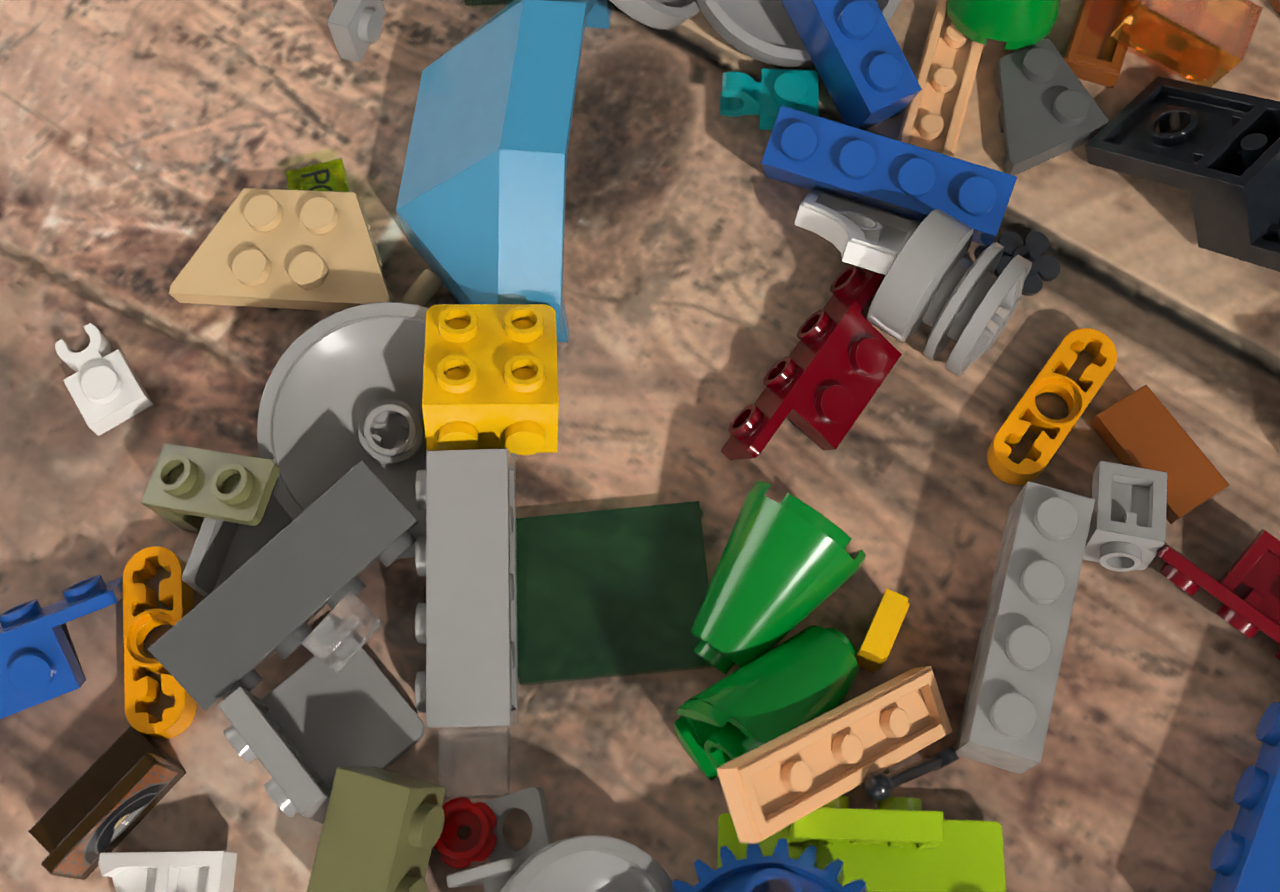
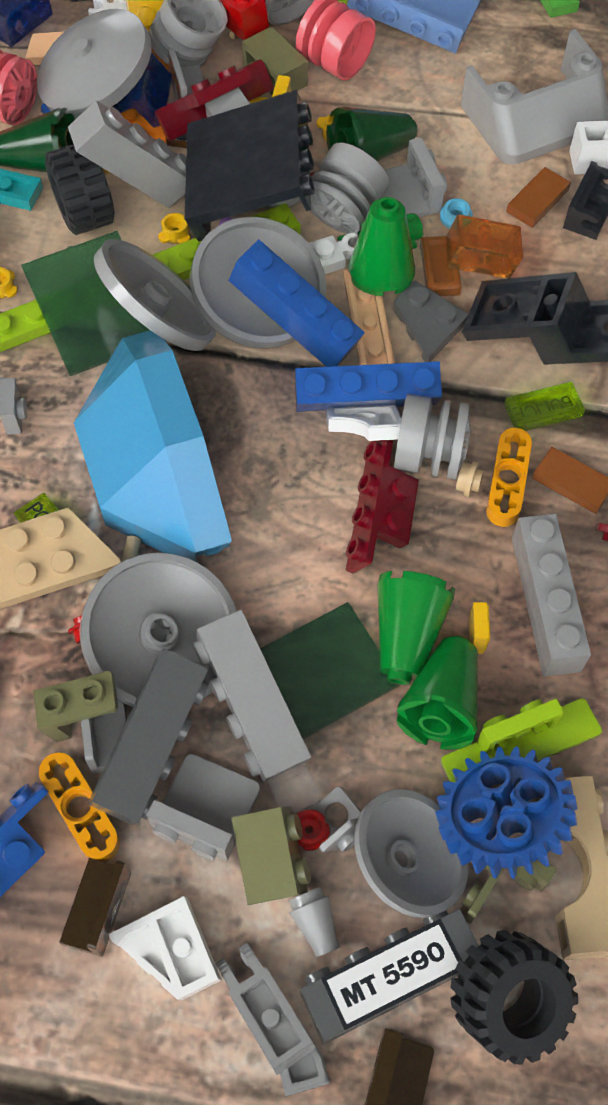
camera: 30 degrees left, 5 degrees down
(342, 632) = (192, 750): clear tile -> none
(491, 378) = (210, 576): yellow bracket -> none
(776, 87) = (279, 365): teal plate -> none
(832, 753) = (489, 693): light nougat tile -> none
(880, 785) = (519, 699): black hinge -> none
(983, 383) = (469, 478): none -> tan plate
(1031, 248) = (460, 395): black plant -> none
(1126, 516) = (575, 517): light grey bracket -> none
(1167, 315) = (544, 406): none -> clear neon green tile

